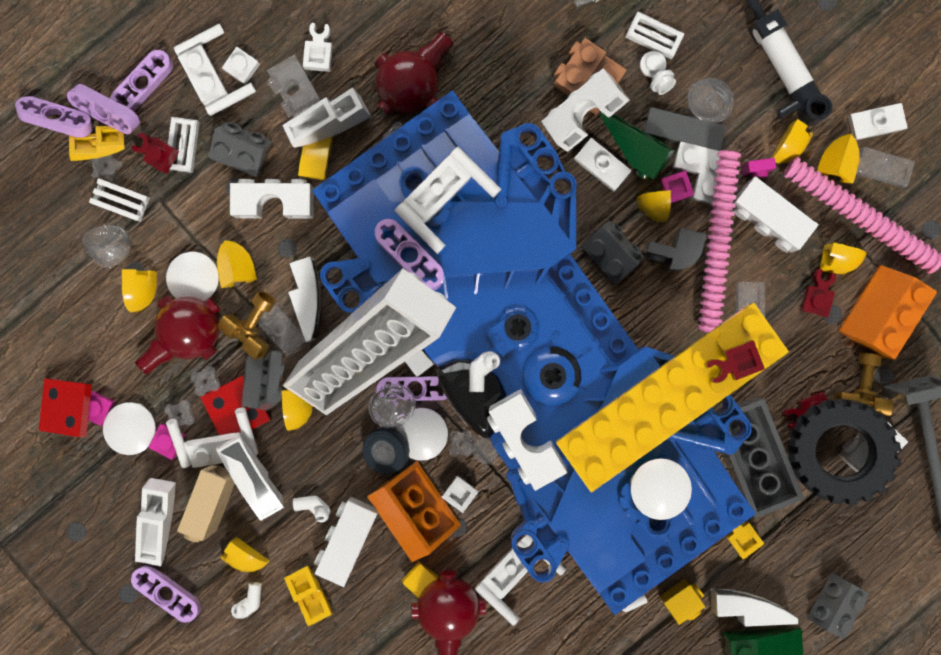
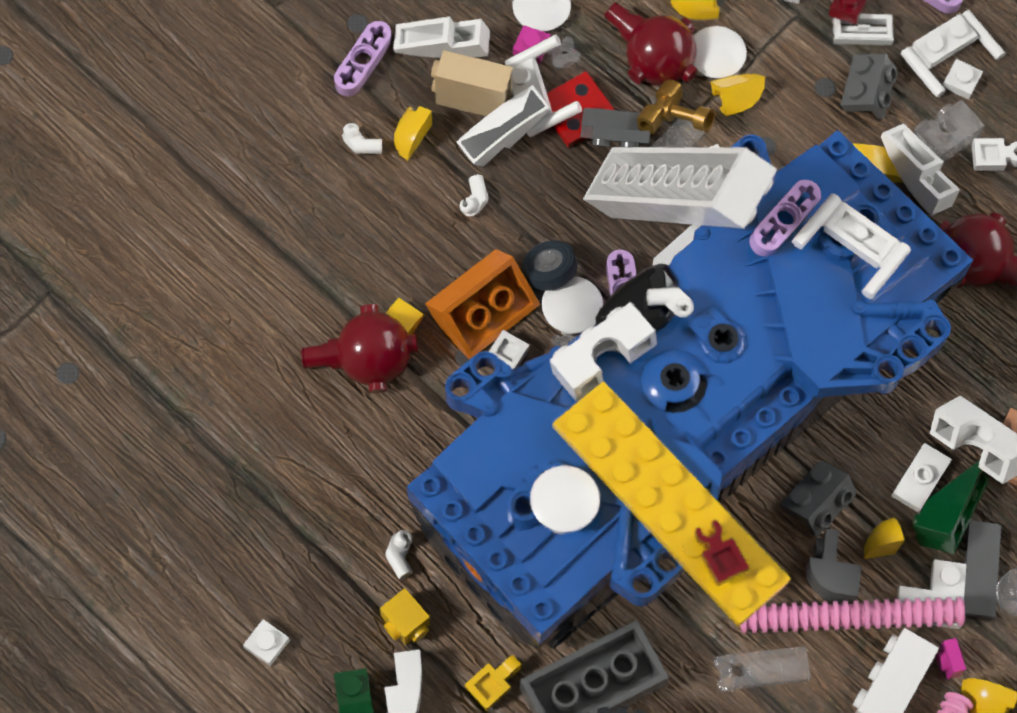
camera: 85 degrees right, 20 degrees down
(212, 381) = (602, 81): clear plate -> none
(249, 197) = (816, 99): white arch -> none
(295, 410) = (582, 167): yellow brick -> none
(309, 595) = (376, 202): yellow slope -> none
(345, 541) = (440, 233): white brick -> none
(392, 405) = (602, 266): clear hat -> none
(504, 577) = (418, 412): white plate -> none
(679, 186) = (909, 564): dark pink plate -> none

